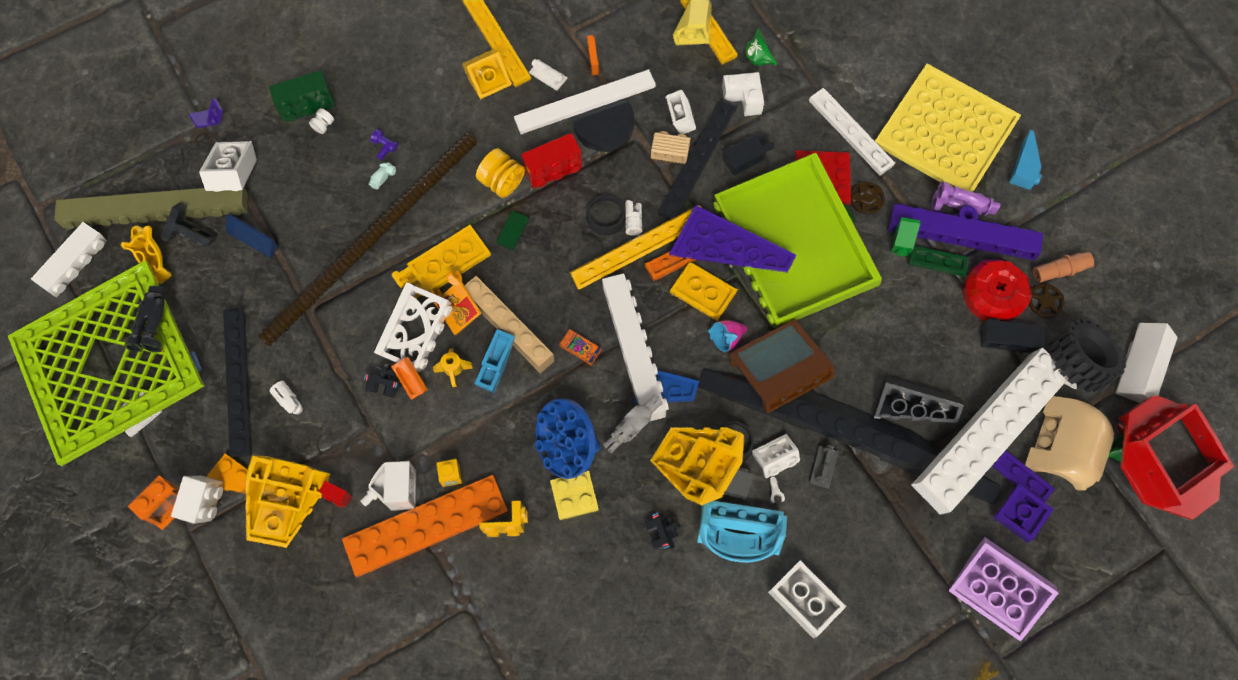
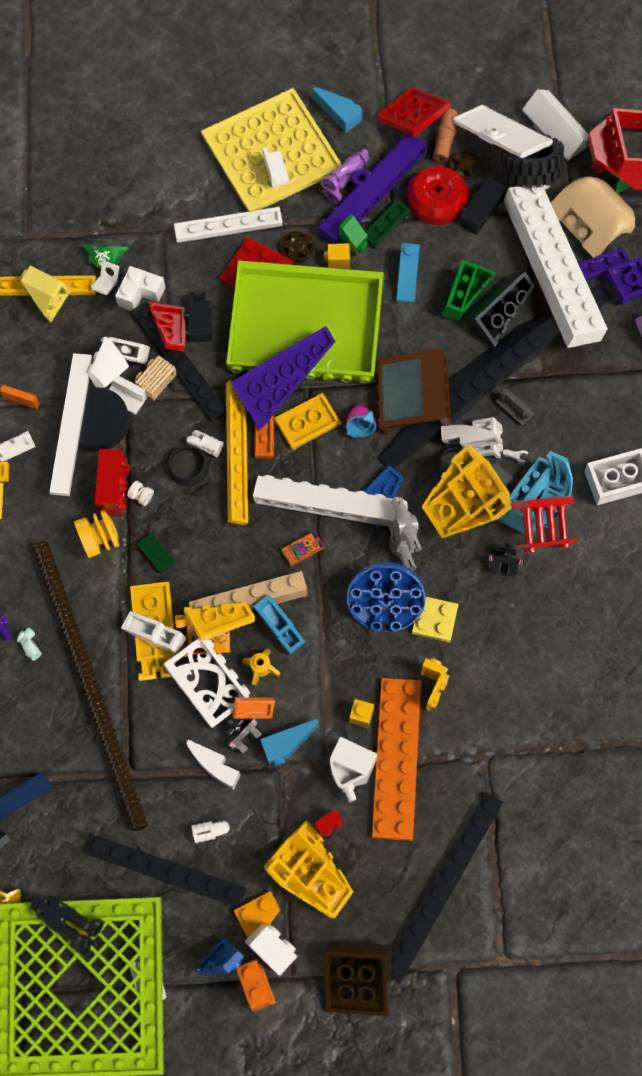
camera: 60 degrees left, 0 degrees up
(172, 462) = (220, 960): none -> blue wing
(206, 588) = (357, 978): none -> dark brown slope
(326, 625) = (444, 885): none -> black plate
(344, 372) = (214, 764): none -> white slope
(390, 421) = (285, 743): none -> dark azure slope
(435, 263) = (154, 632): none -> white slope
(466, 304) = (217, 620): none -> yellow wing
(558, 190) = (140, 493): none -> white wheel
(642, 135) = (131, 394): none -> white panel
(654, 100) = (107, 364): none -> white slope
(721, 529) = (537, 507): none -> red fence
(726, 132) = (170, 324): none -> red wing
(736, 65) = (105, 282): none -> white bracket
(764, 436) = (468, 435): none -> white slope
(878, 236) = (338, 256): none -> yellow brick
(900, 303) = (408, 273): none -> dark azure slope
(915, 362) = (466, 288): none -> green wedge
(929, 138) = (275, 168): none -> white panel
(1067, 226) = (413, 111): none -> red plate
(1099, 313) = (502, 131): none -> white door

